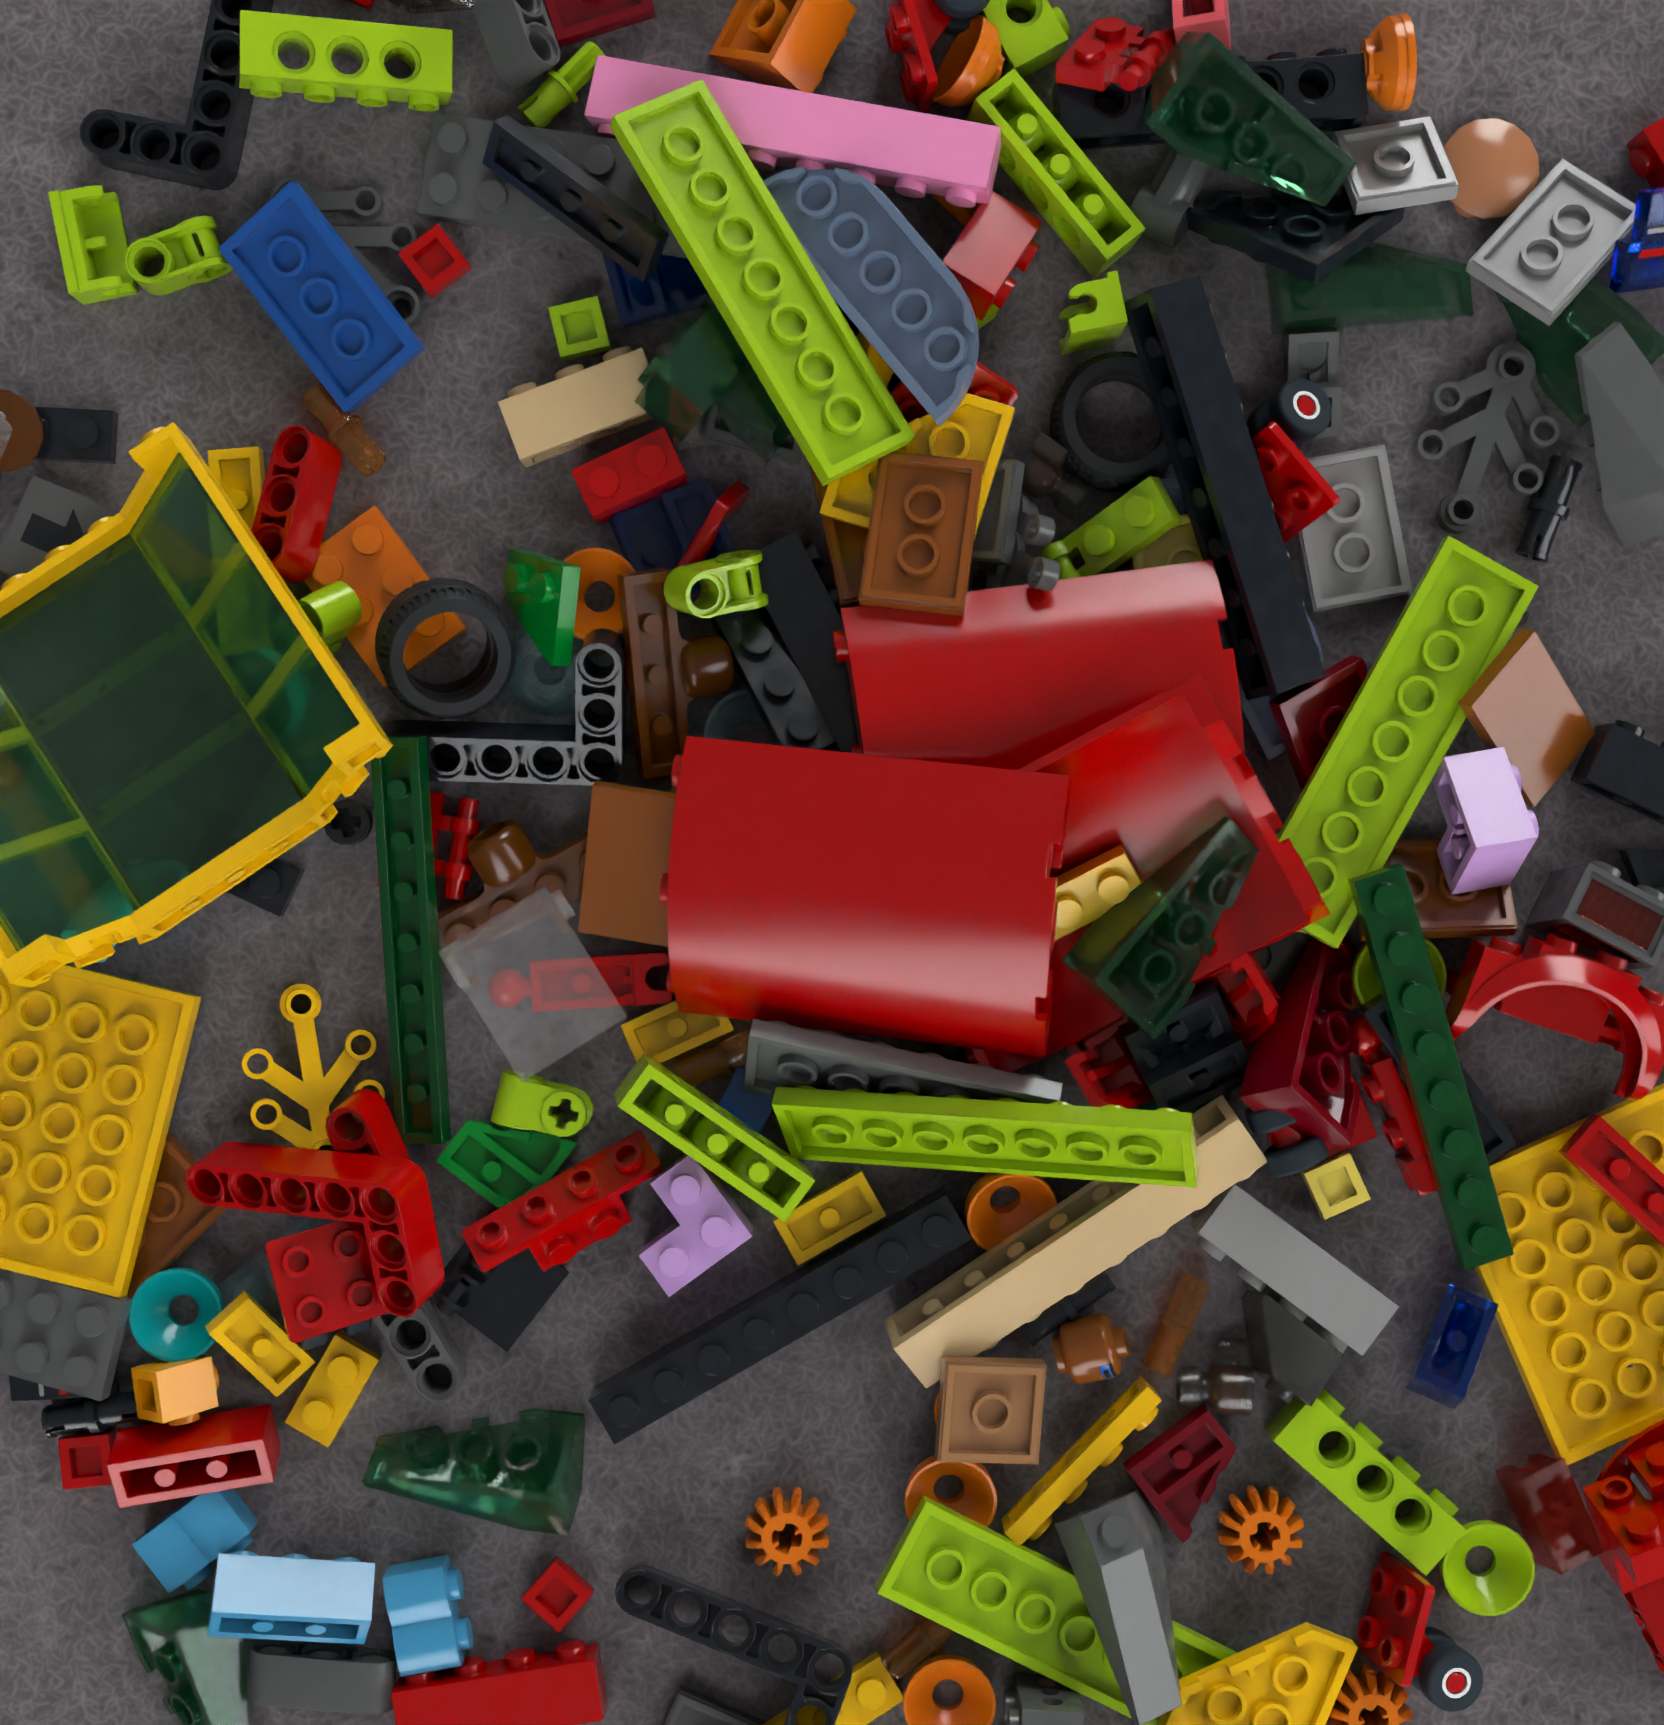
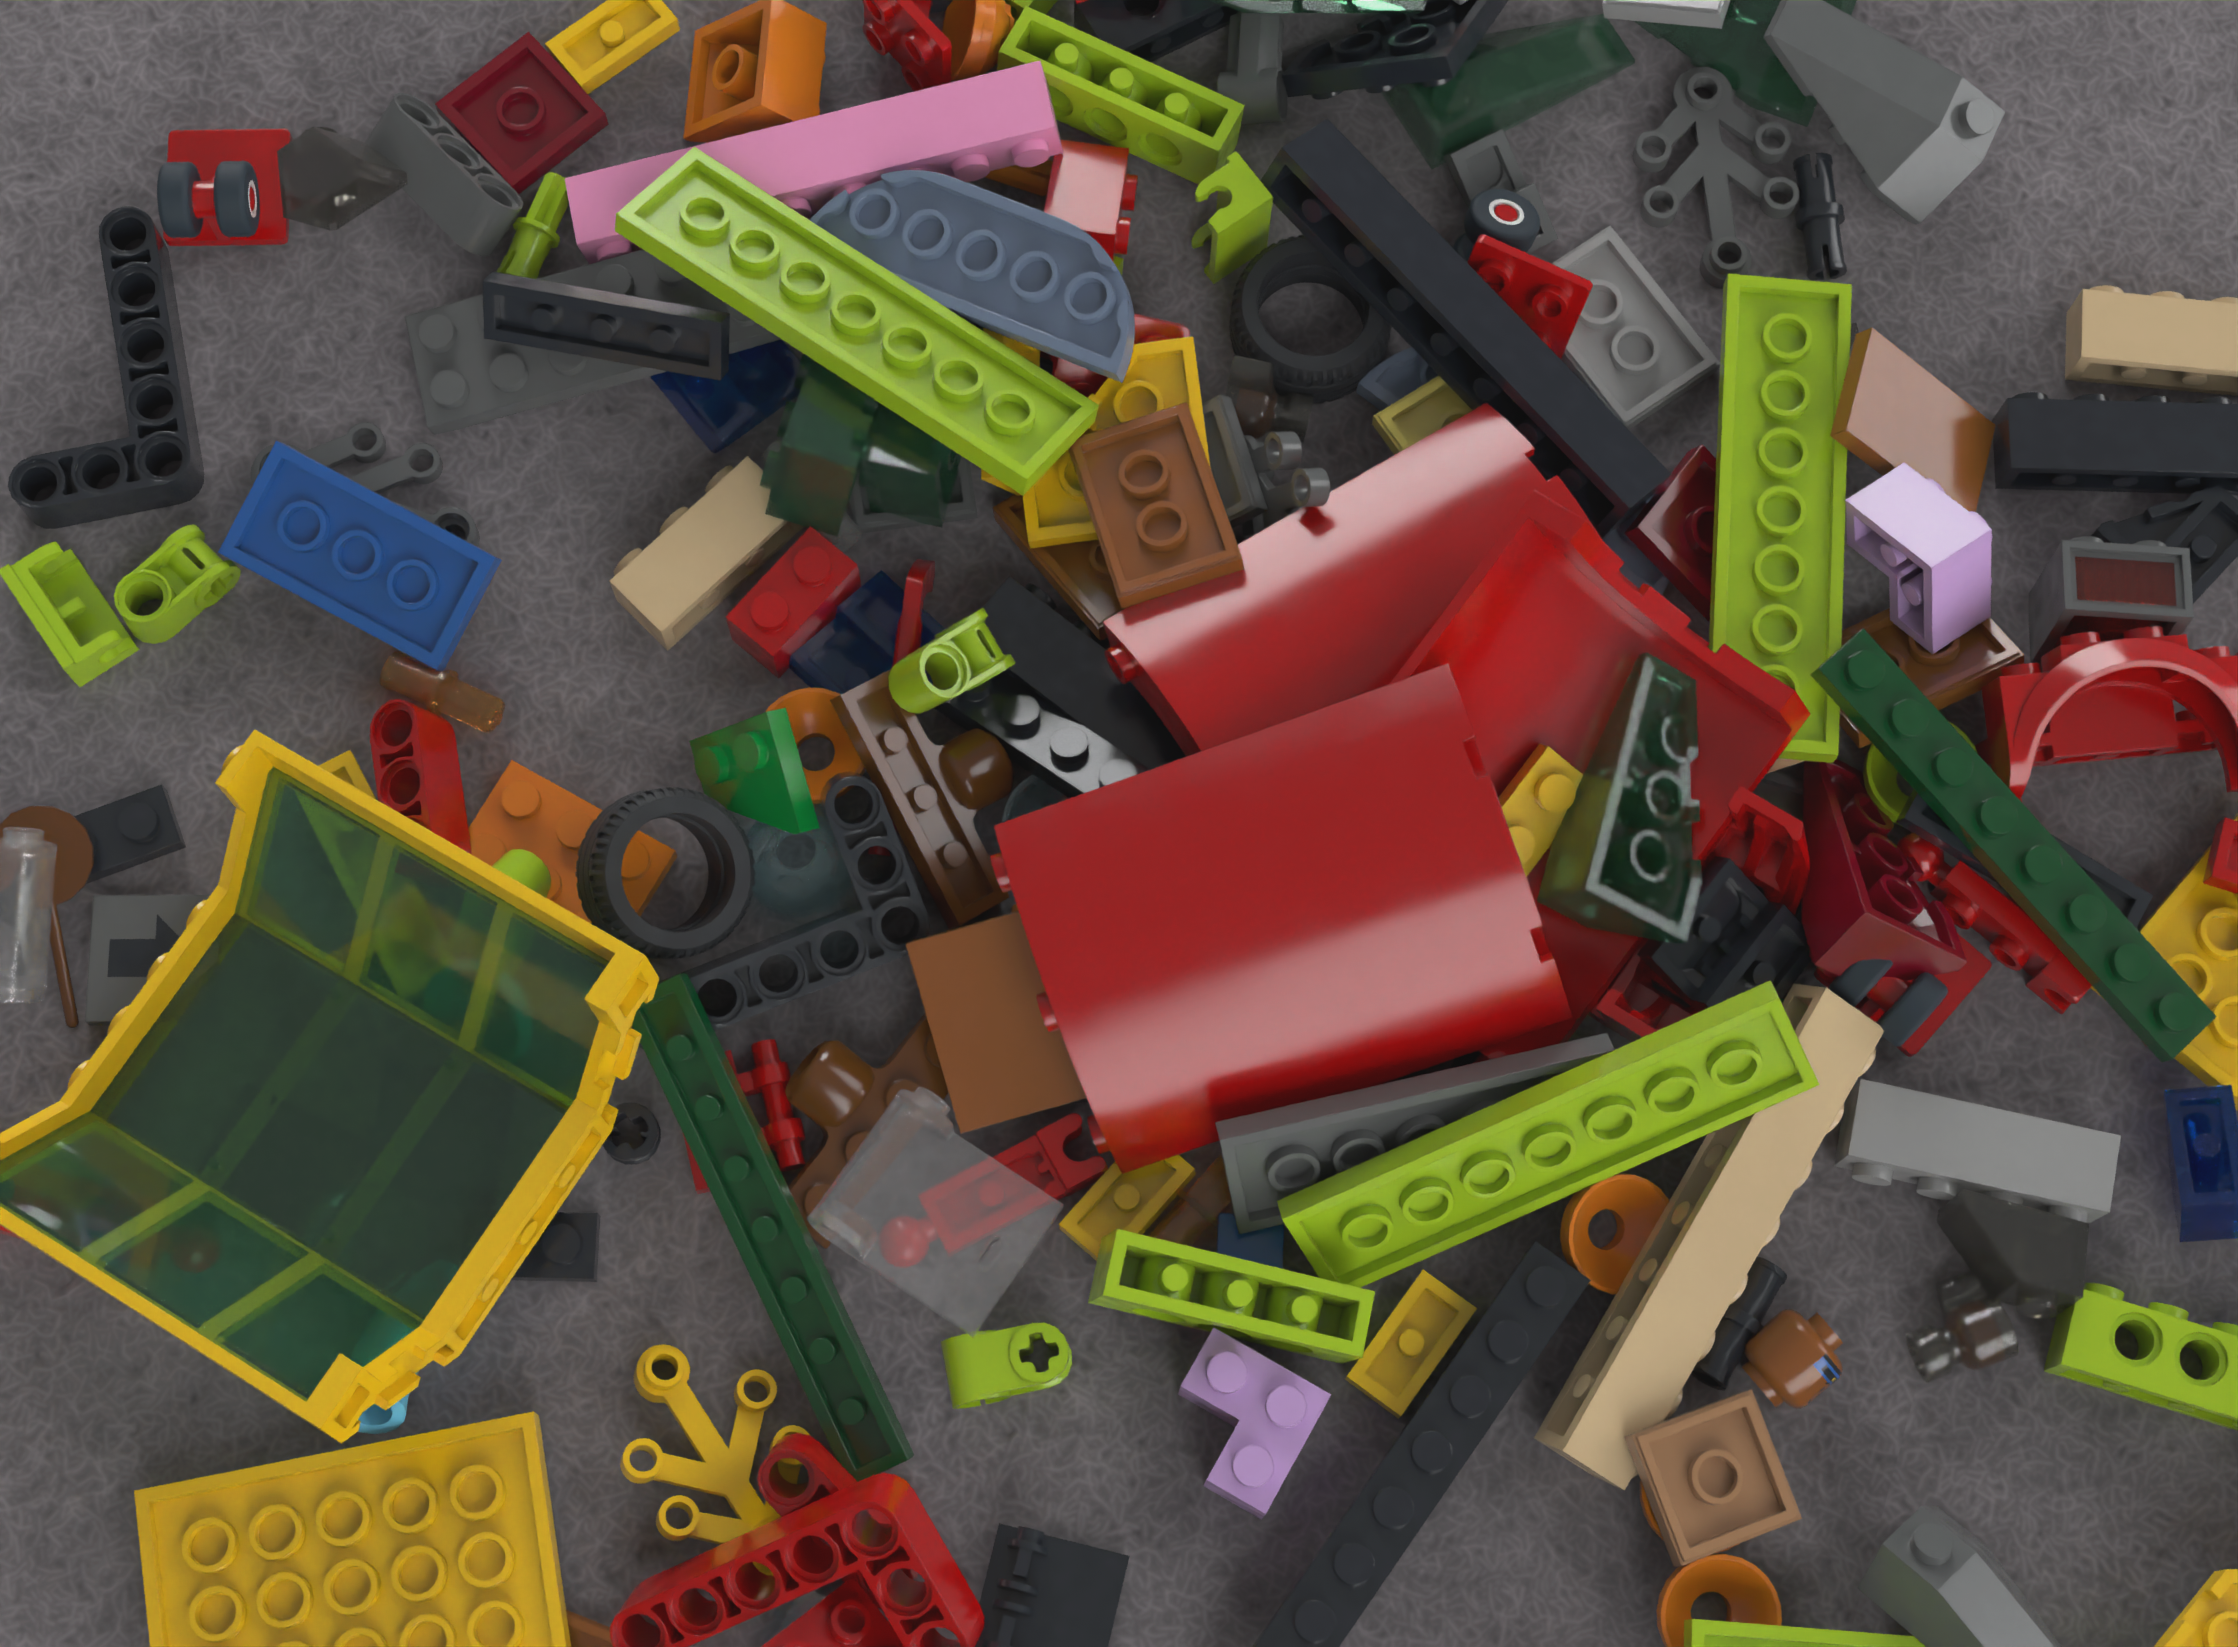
camera: 30 degrees left, 15 degrees down
(371, 44) = (305, 269): lime brick -> none
(435, 261) = (470, 469): red plate -> none
(504, 1160) = (993, 1453): green wing -> none
(566, 1210) = (1095, 1472): red bracket -> none
(579, 328) = (666, 472): lime plate -> none
(1068, 1475) = (1861, 1474): yellow plate -> none
(1117, 531) = (1373, 416): lime plate -> none
(1176, 1324) = (1878, 1287): clear orange axle -> none
(1182, 1467) = (1974, 1457): dark red wing -> none
(1276, 1537) = (2080, 1477): orange gear -> none
(1335, 1185) = (1975, 1041): light yellow plate -> none

